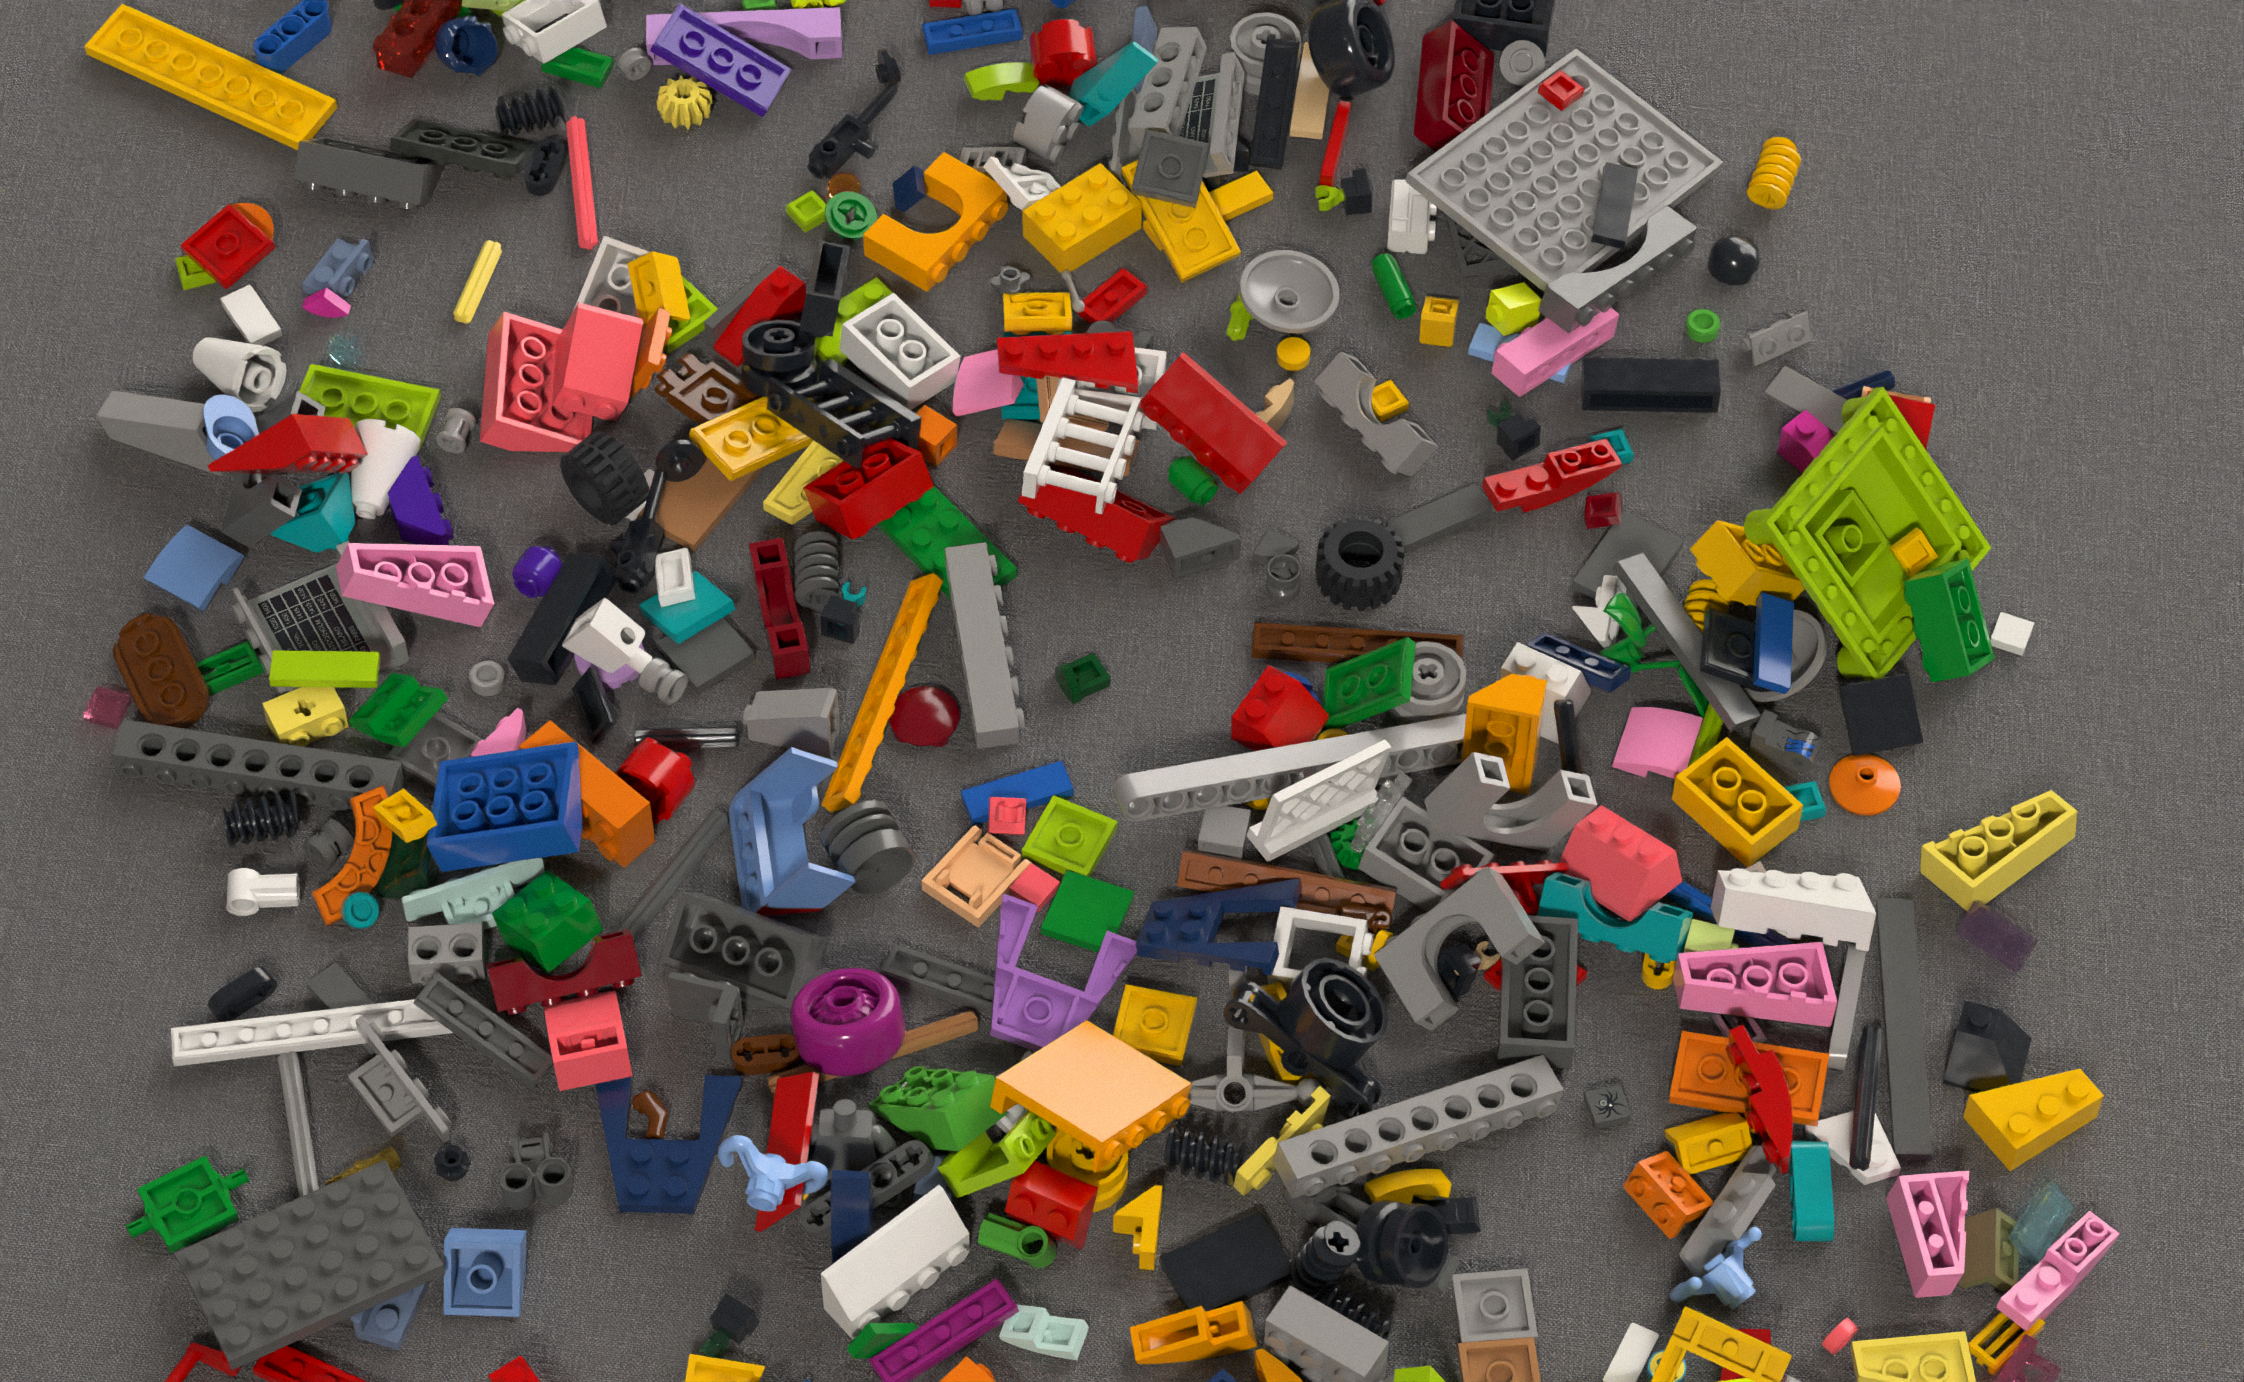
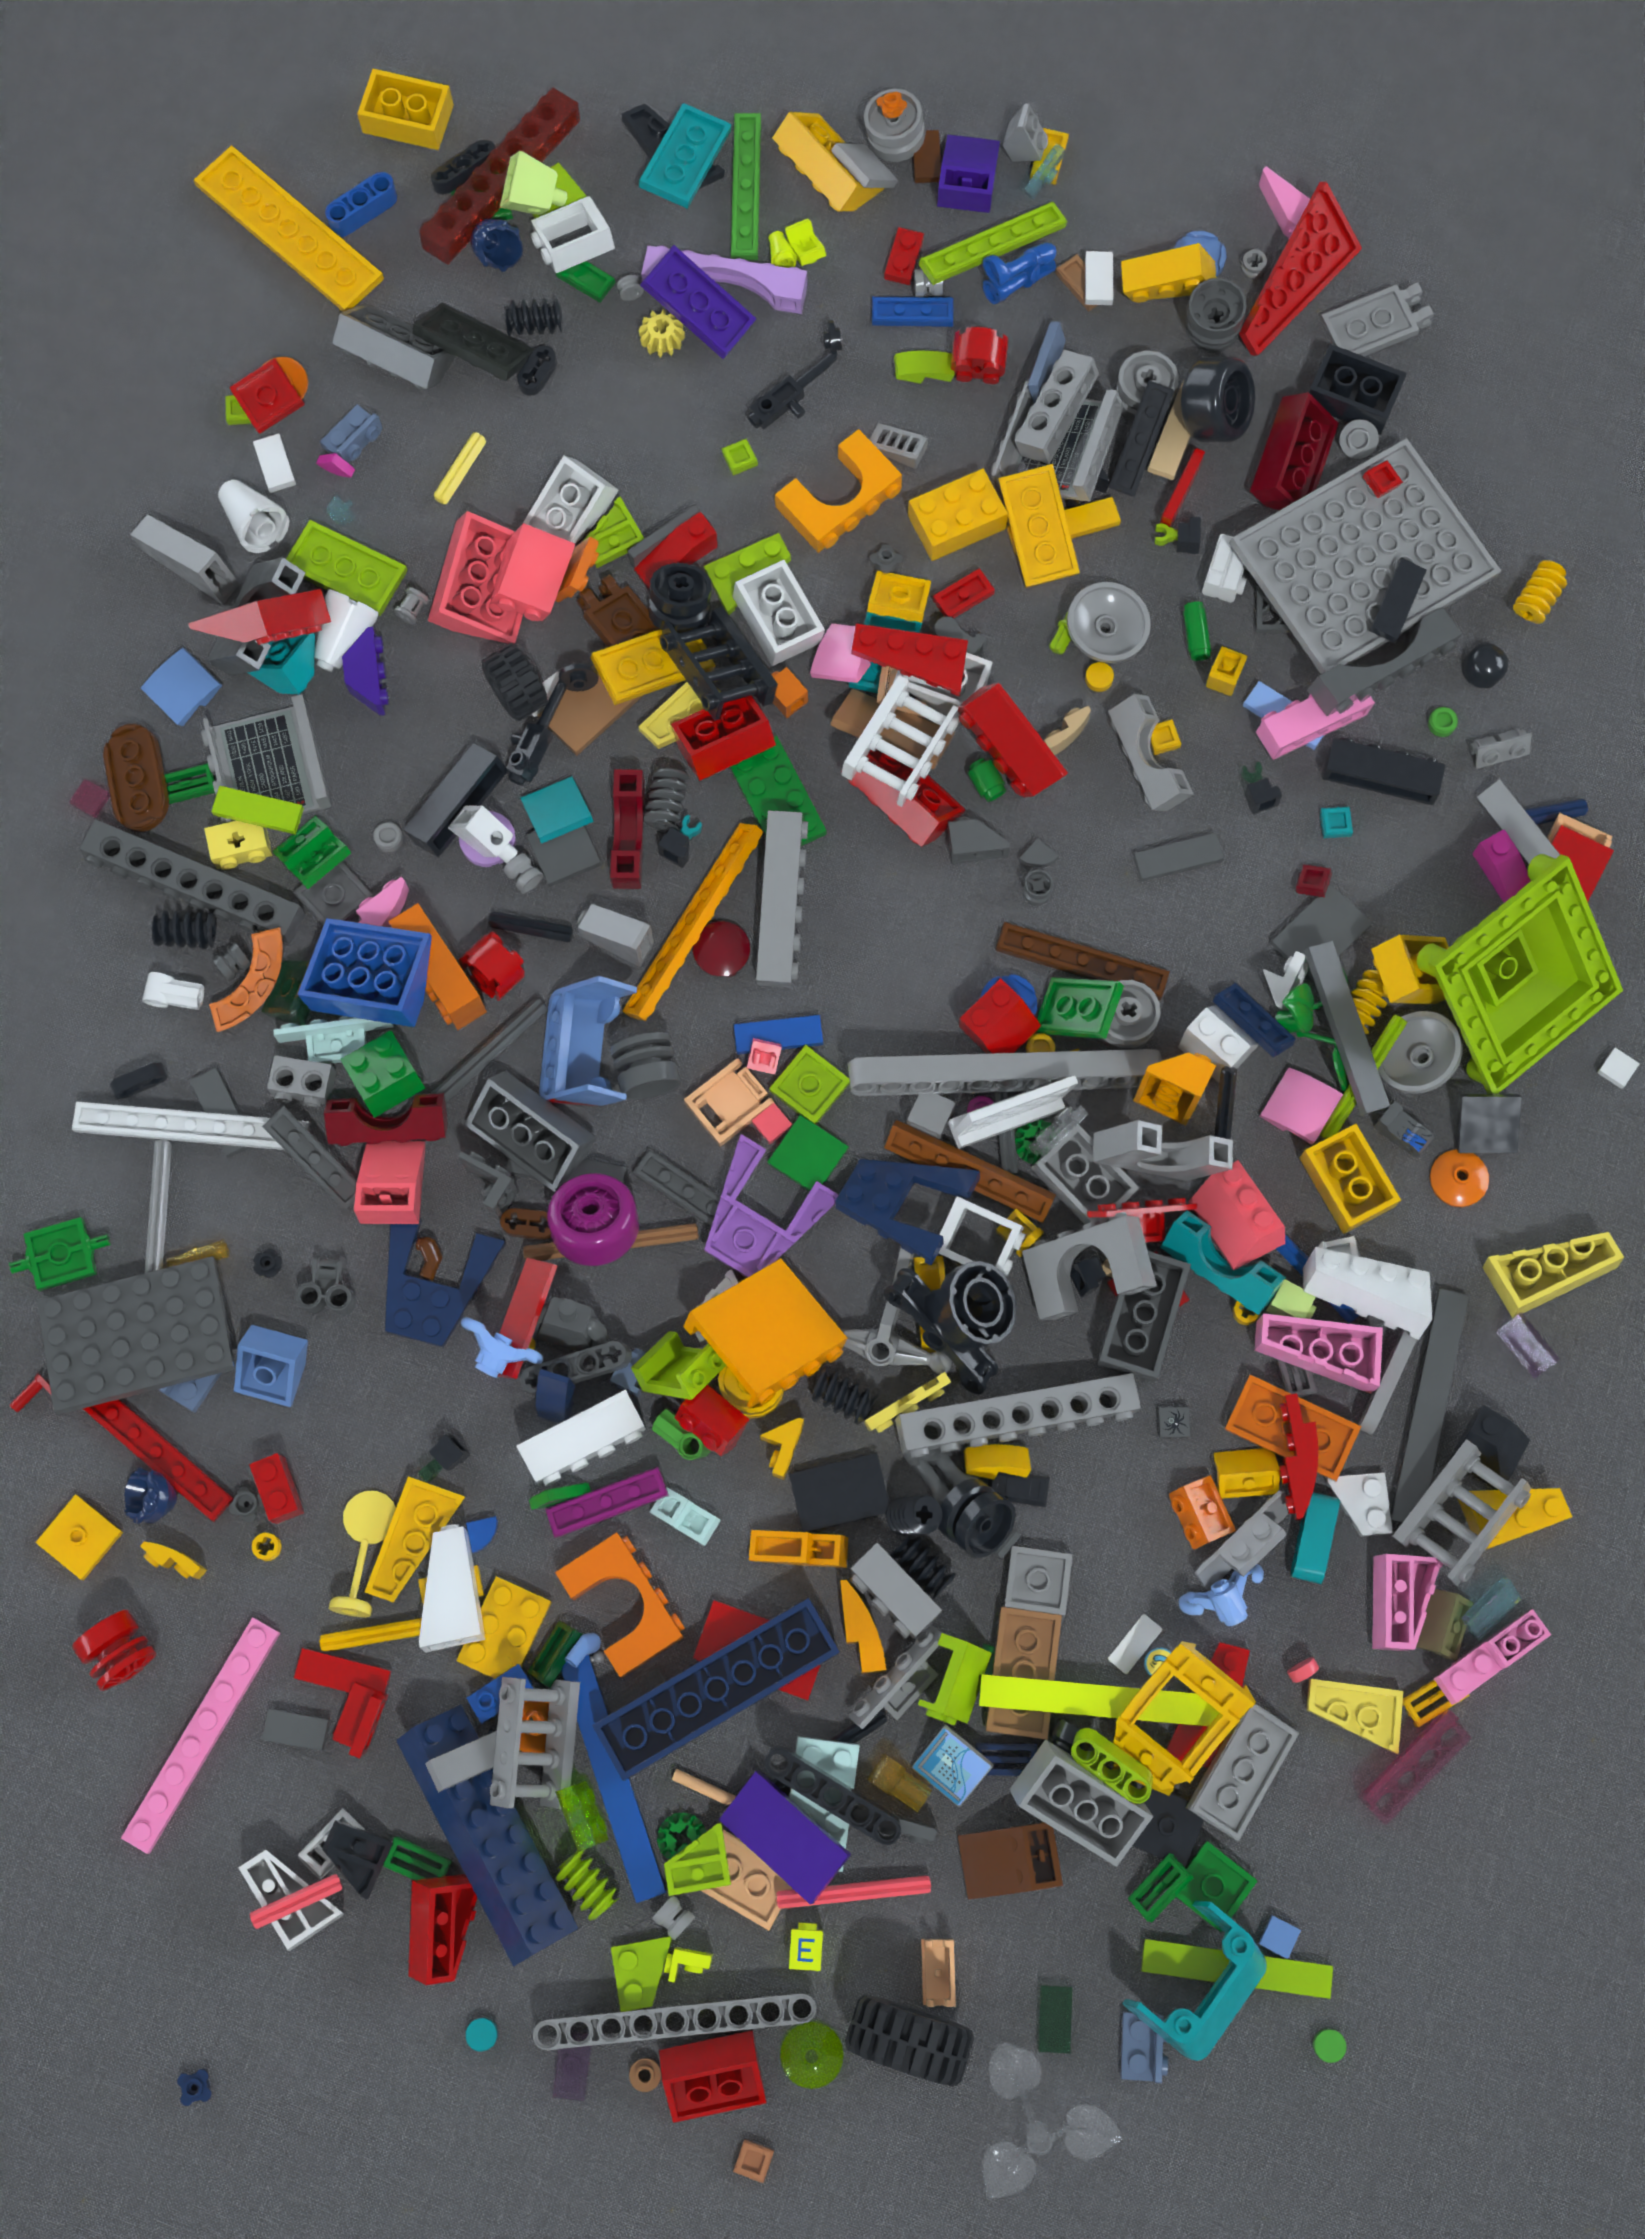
camera: 15 degrees right, 20 degrees up
(227, 424) = (228, 576): medium blue piece -> none
(359, 910) = (243, 1026): teal tile -> none
(390, 1091) = (230, 1193): light grey bracket -> none
(405, 816) = (287, 963): yellow plate -> none
(419, 579) = (348, 744): bright pink wedge -> none
(536, 570) = (445, 751): dark purple head -> none
(582, 183) = (563, 392): coral axle -> none
(594, 705) = (464, 882): black tile -> none
(658, 284) = (597, 513): yellow panel -> none
(674, 577) = (552, 780): white tile -> none
(824, 289) = (729, 543): black brick -> none
(840, 205) = (767, 458): green gear -> none
(843, 183) = (772, 442): clear orange tile -> none
(909, 189) = (824, 455): dark blue tile -> none
(939, 1106) = (646, 1308): bright green slope -> none
(1021, 183) = (917, 473): white wing -> none
(1048, 123) = (951, 417): light grey brick -> none
(1077, 305) = (933, 597): light grey hinge -> none
(1082, 677) = (855, 941): dark green tile -> none
(1111, 81) = (1007, 393): teal slope -> none
(1156, 1023) = (835, 1268): yellow plate -> none
(1170, 168) = (1038, 488): dark grey tile -> none
(1360, 541) = (1108, 868): black tyre -> none
(1375, 919) = (1023, 1214): reddish brown arm -> none
(1513, 308) = (1289, 677): neon yellow brick -> none
(1557, 478) = (1280, 843): red slope -> none
(1729, 648) = (1385, 1045): black tile -> none
(1773, 643) = (1417, 1046): blue tile -> none
(1810, 797) = (1406, 1183): teal tile -> none
(1865, 1098) = (1380, 1469): black axle -> none
(1913, 552) = (1556, 989): yellow tile -> none
(1948, 621) = (1568, 1056): green slope -> none
(1949, 1091) = (1431, 1509): none -> light grey fence

